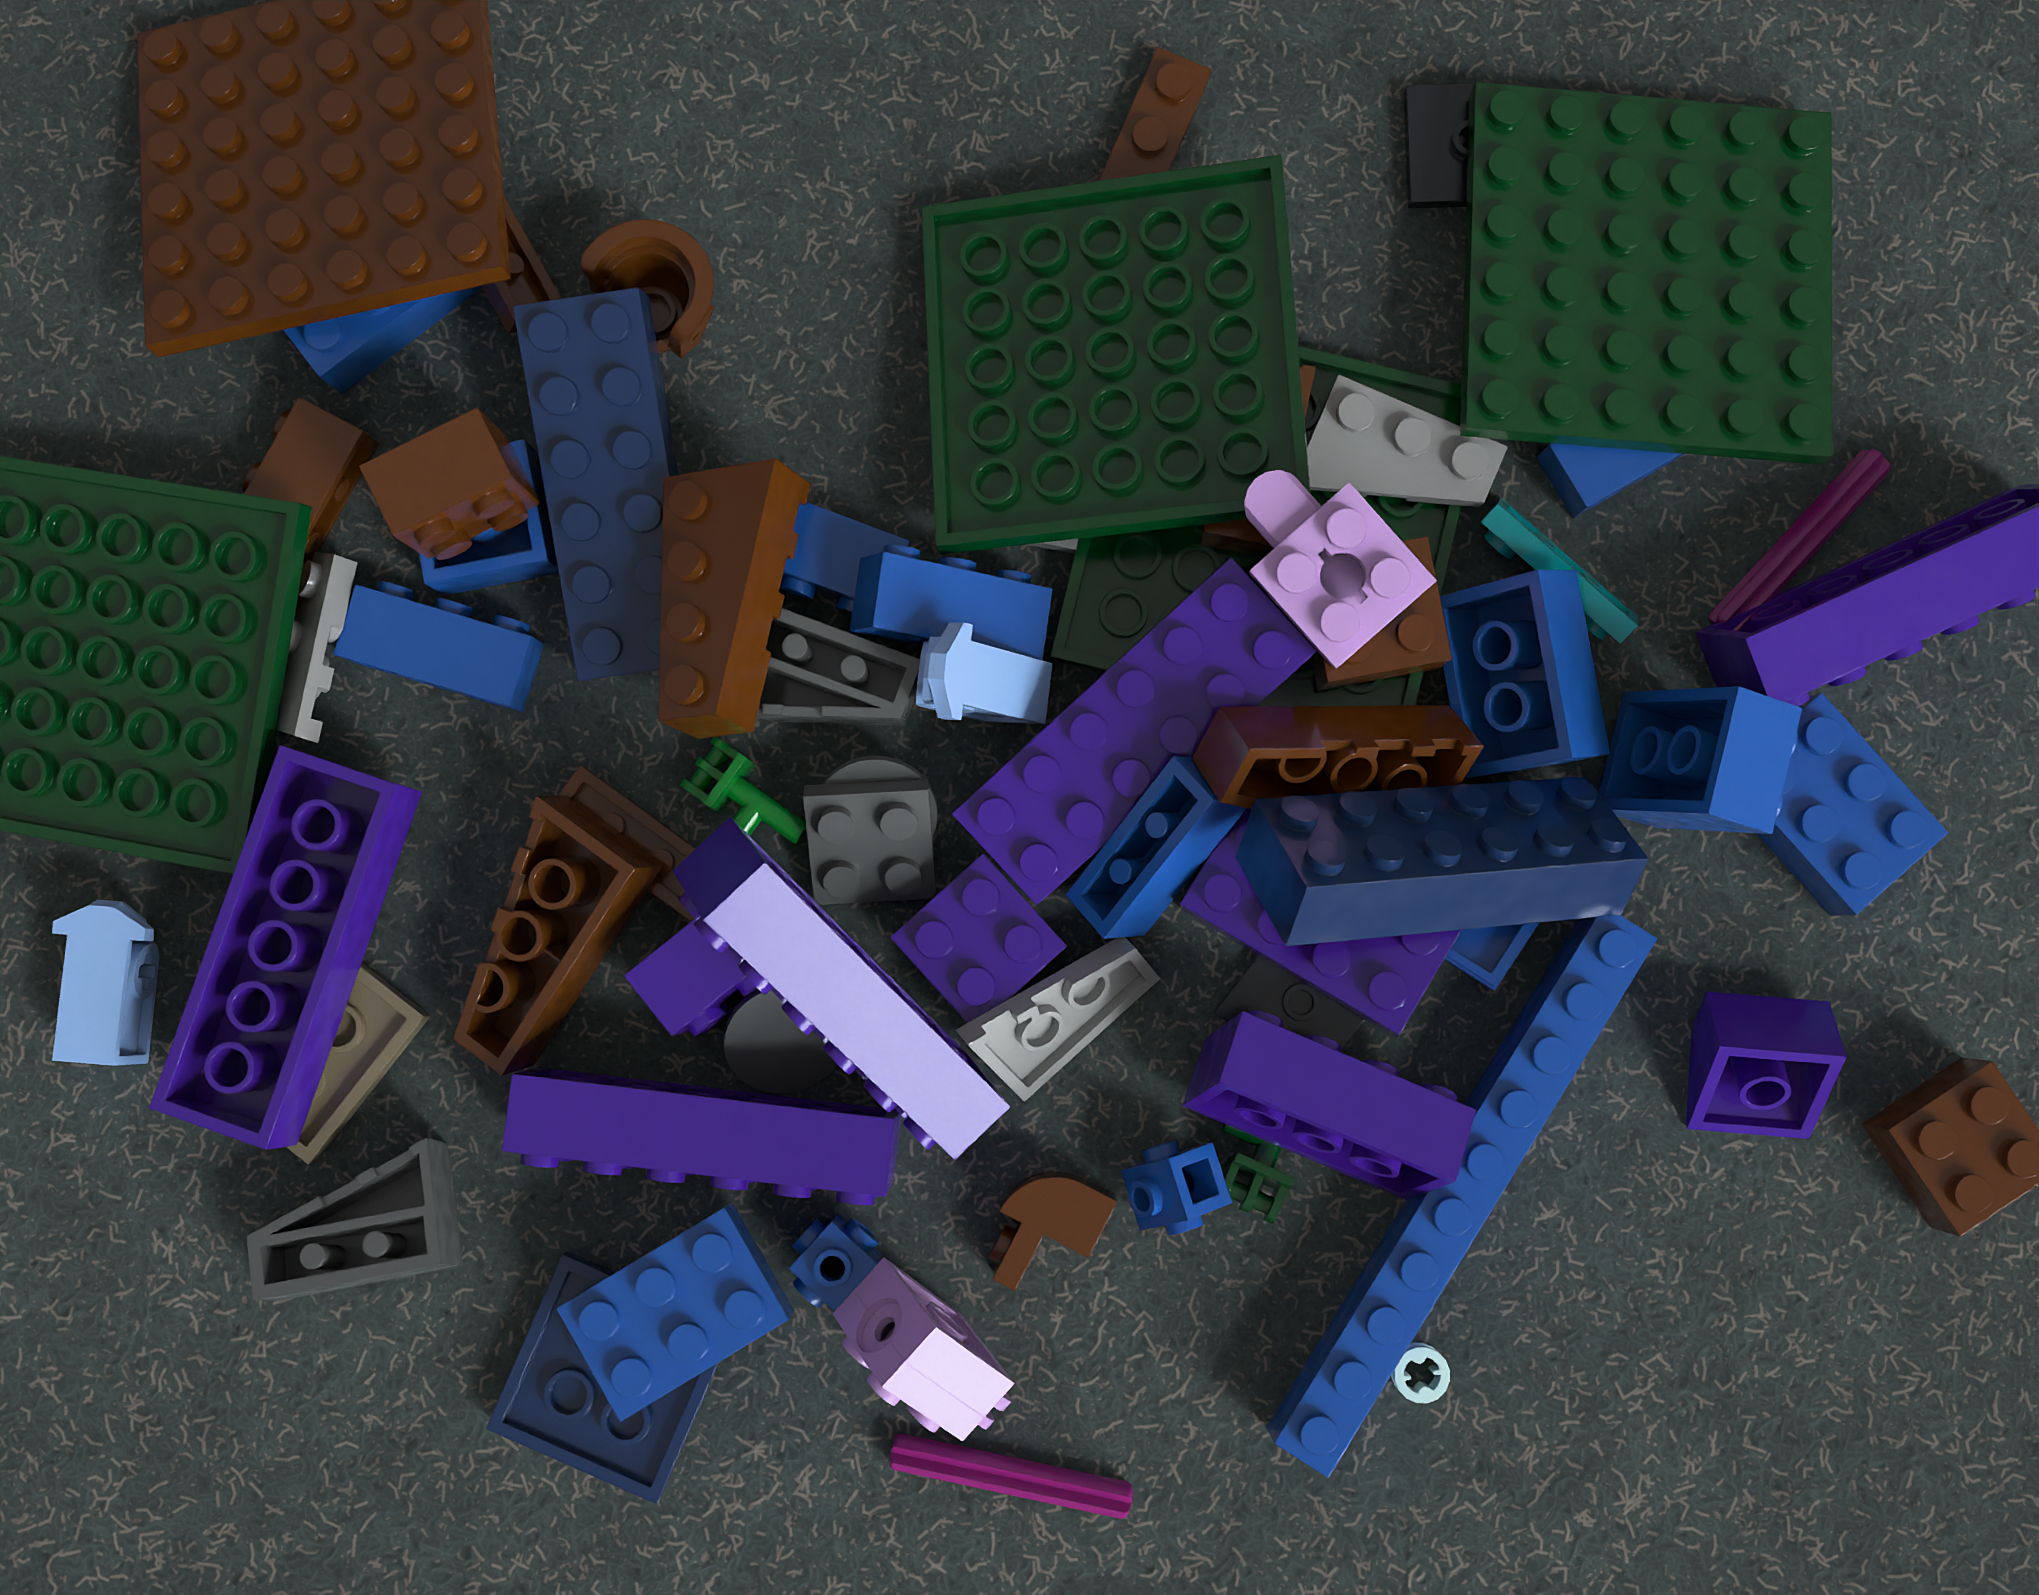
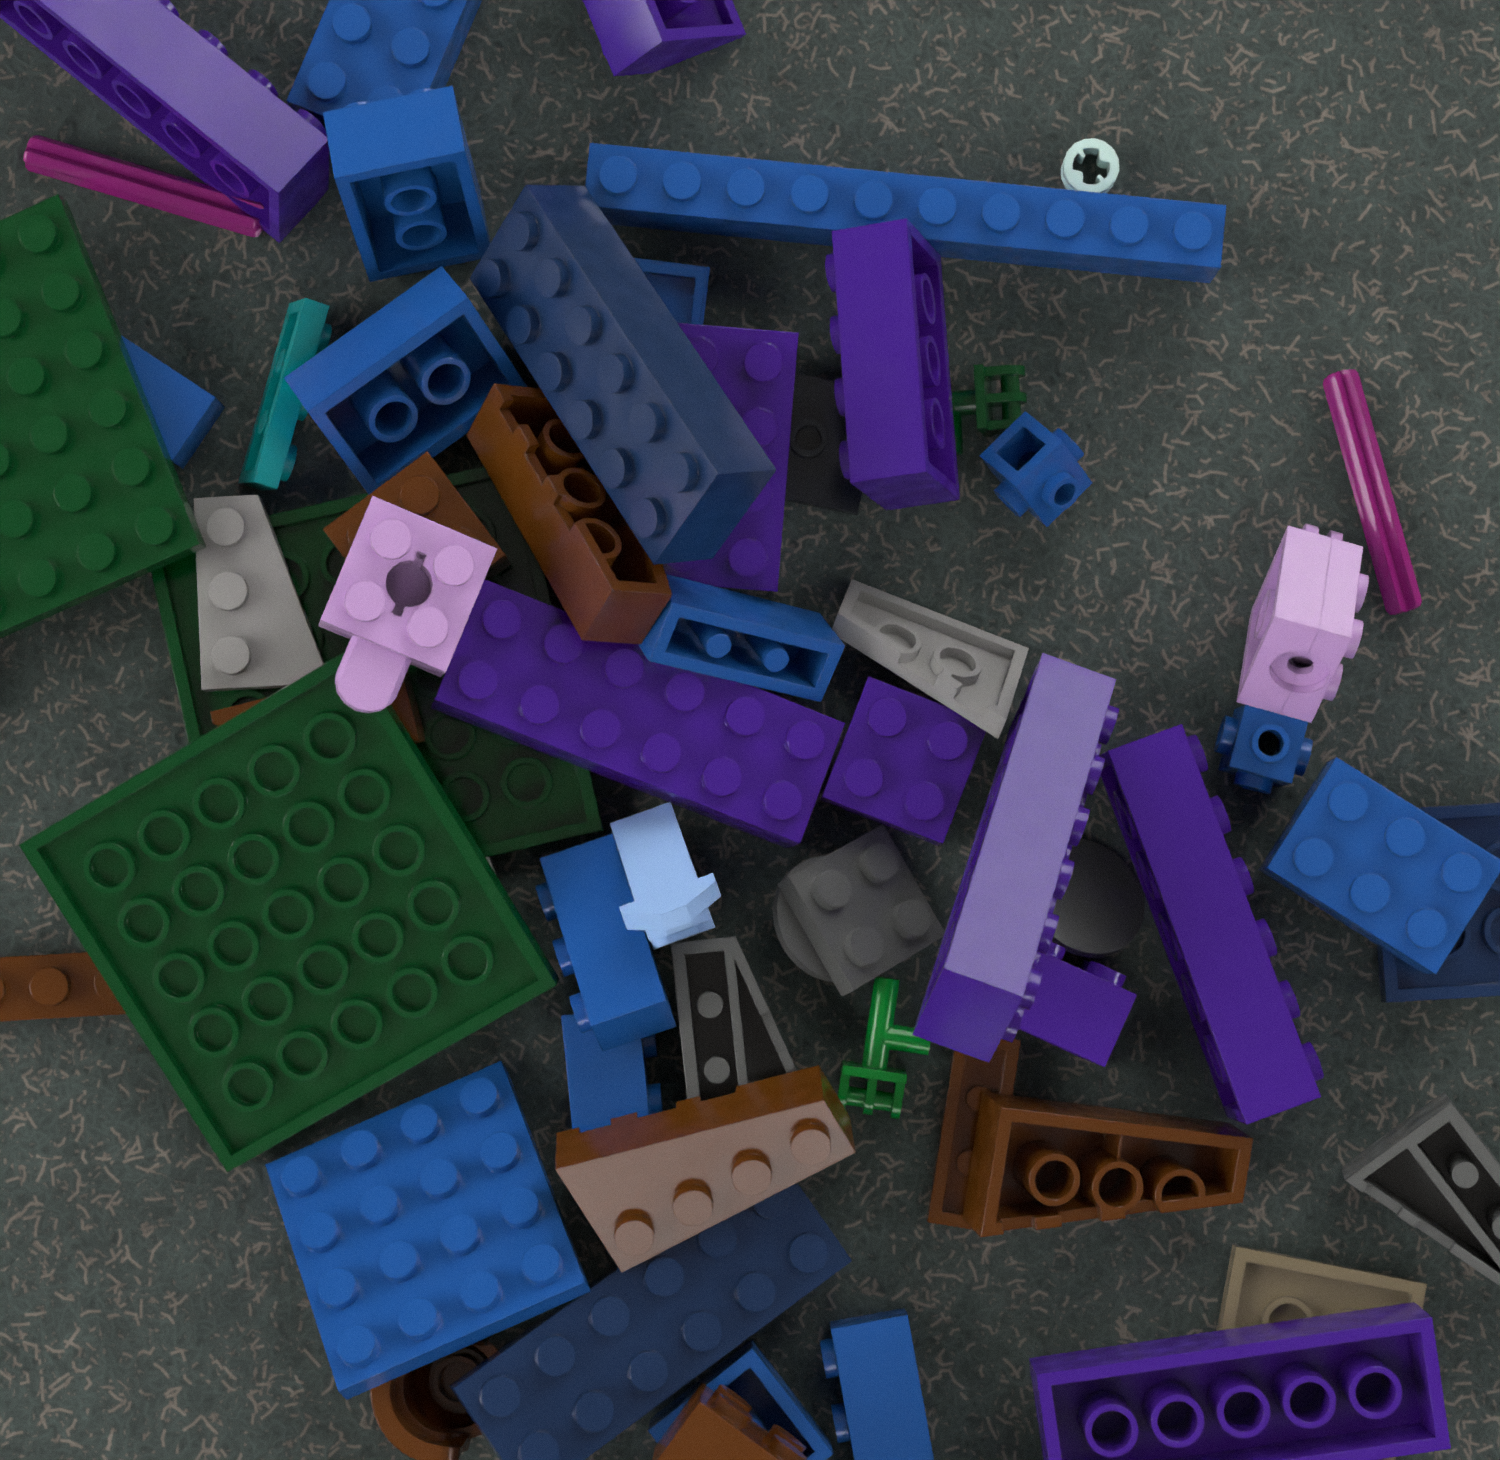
camera: 120 degrees left, 0 degrees up
(786, 339) = (425, 1230): none -> blue plate
(1051, 1206) = (1110, 571): reddish brown brick -> none

